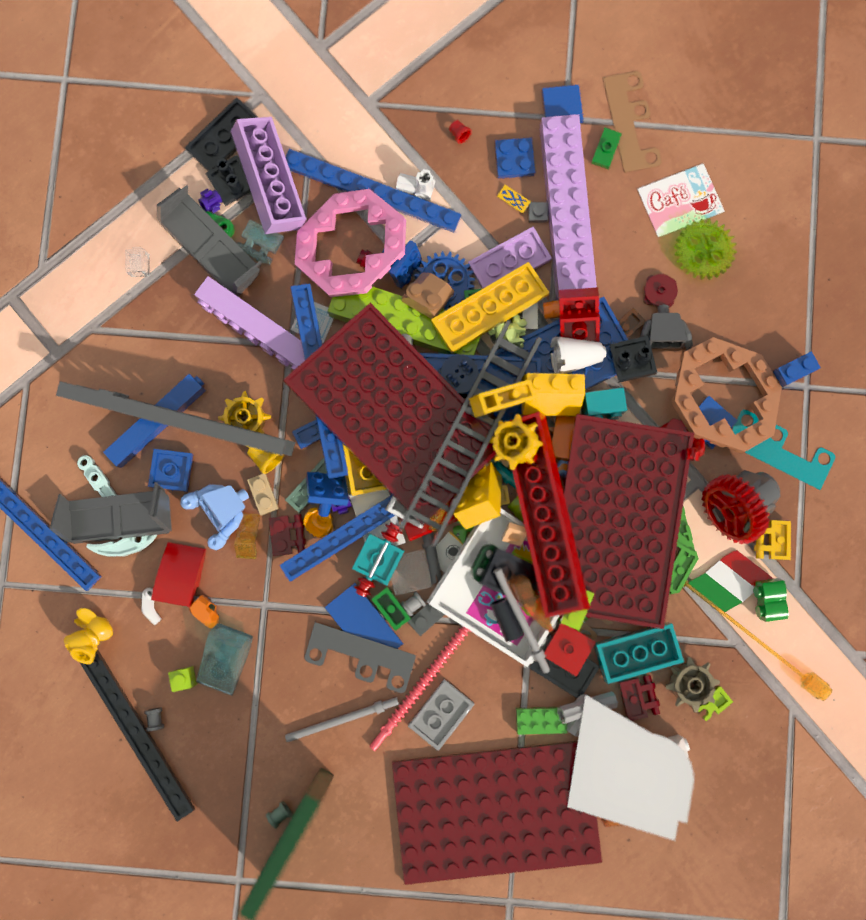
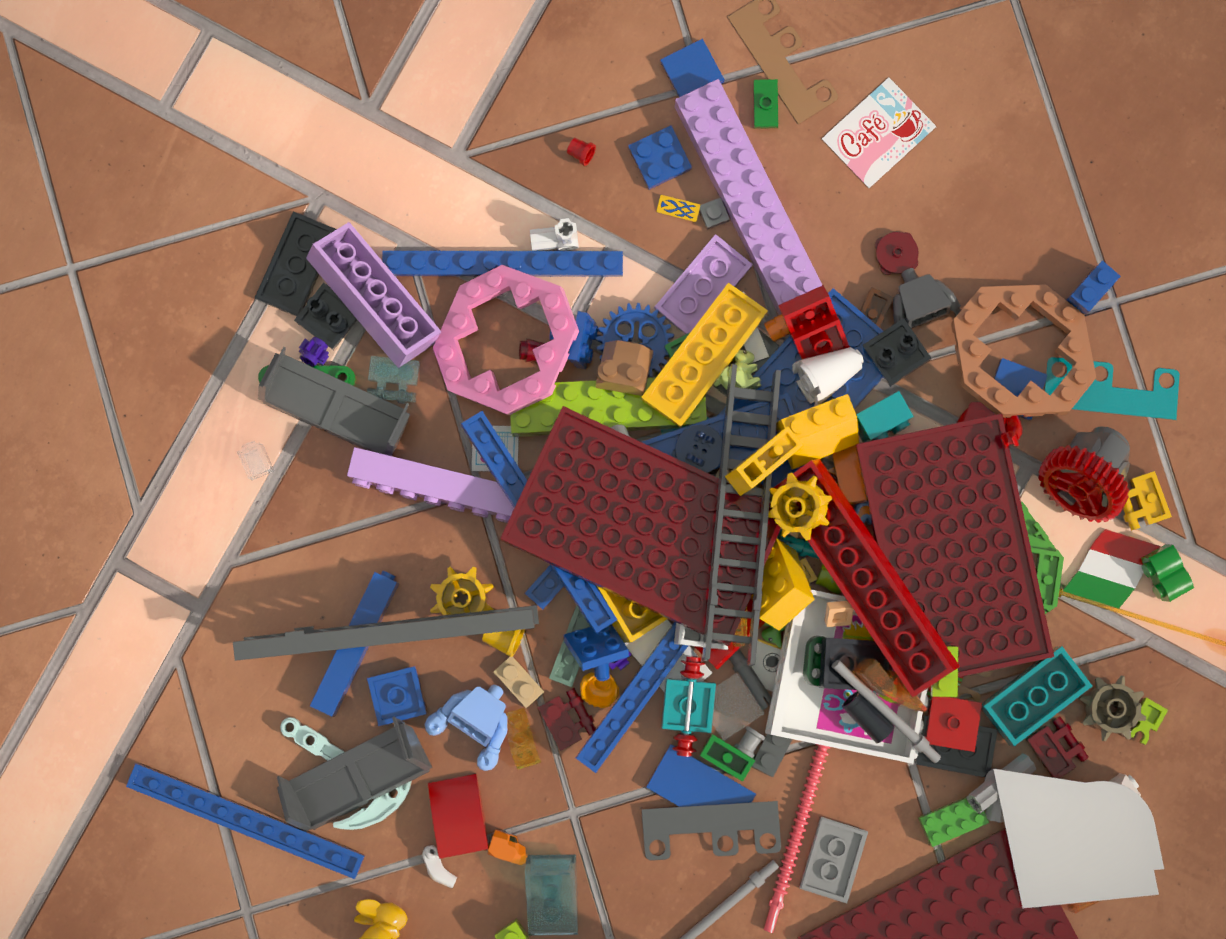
camera: 20 degrees left, 0 degrees up
(688, 250) = (950, 173): clear neon green gear -> none

